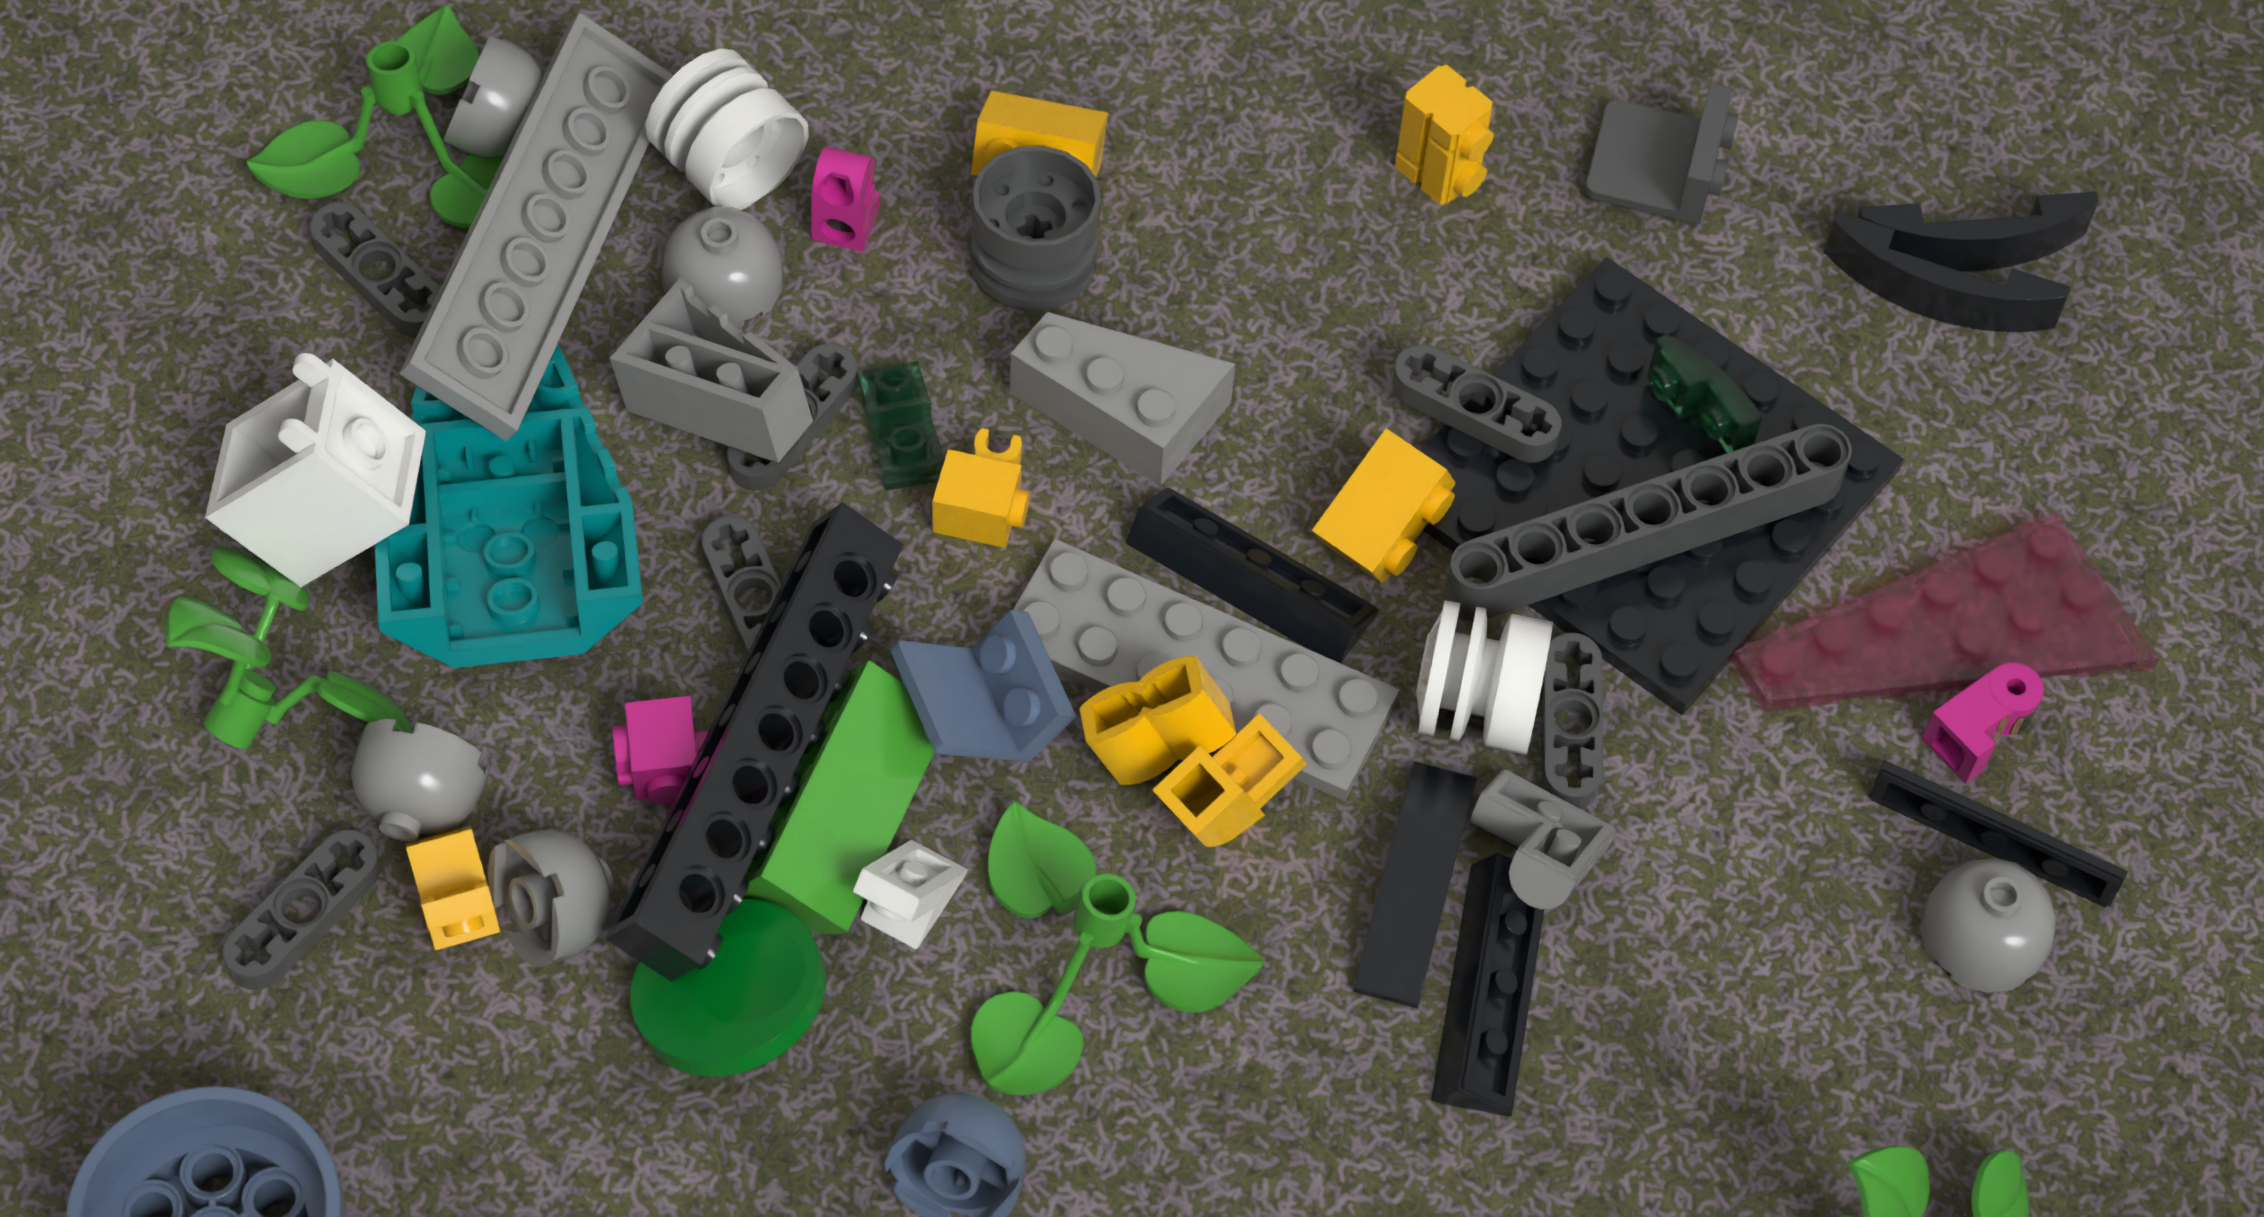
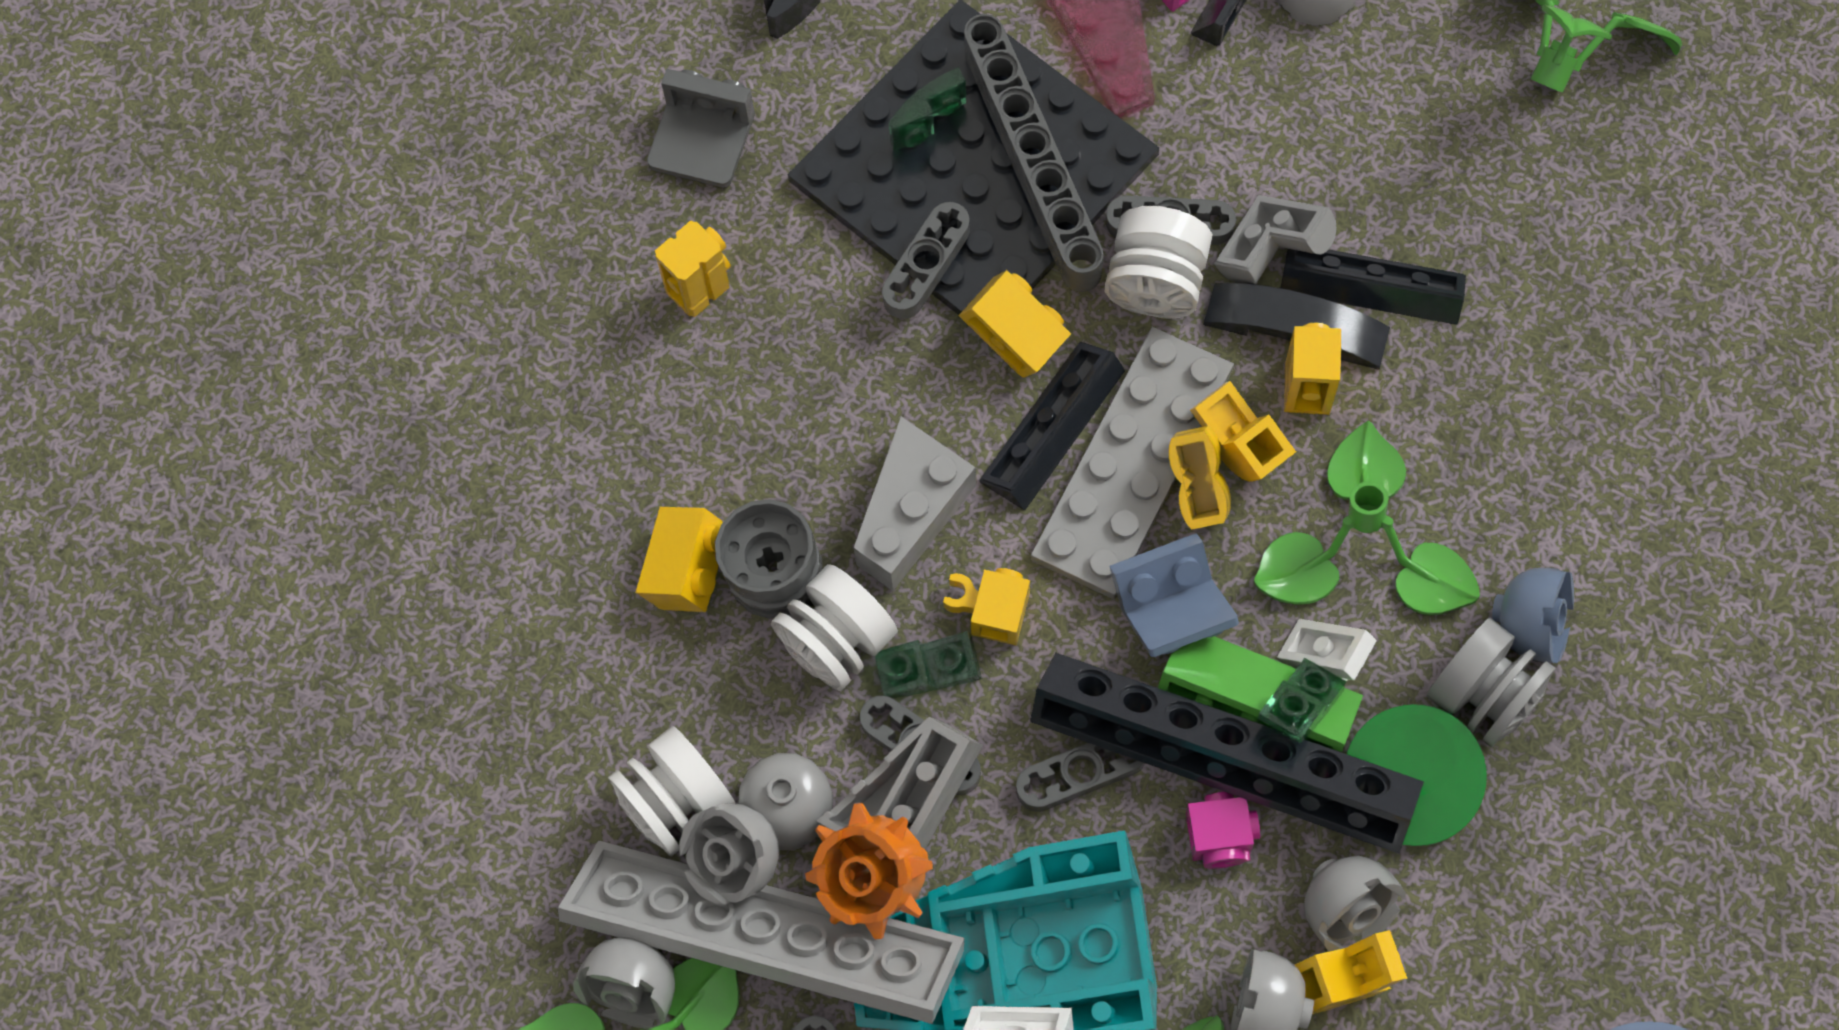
camera: 80 degrees left, 10 degrees up
(599, 309) = (869, 870): none -> orange brick
(640, 186) = (729, 852): none -> light grey cylinder
(811, 818) = (1302, 700): none -> clear green slope
(845, 193) = (733, 703): dark pink leg -> none
(851, 1074) = (1491, 682): none -> light grey wheel
(939, 296) = (842, 619): none -> white wheel
(1329, 867) = (1312, 369): none -> yellow brick

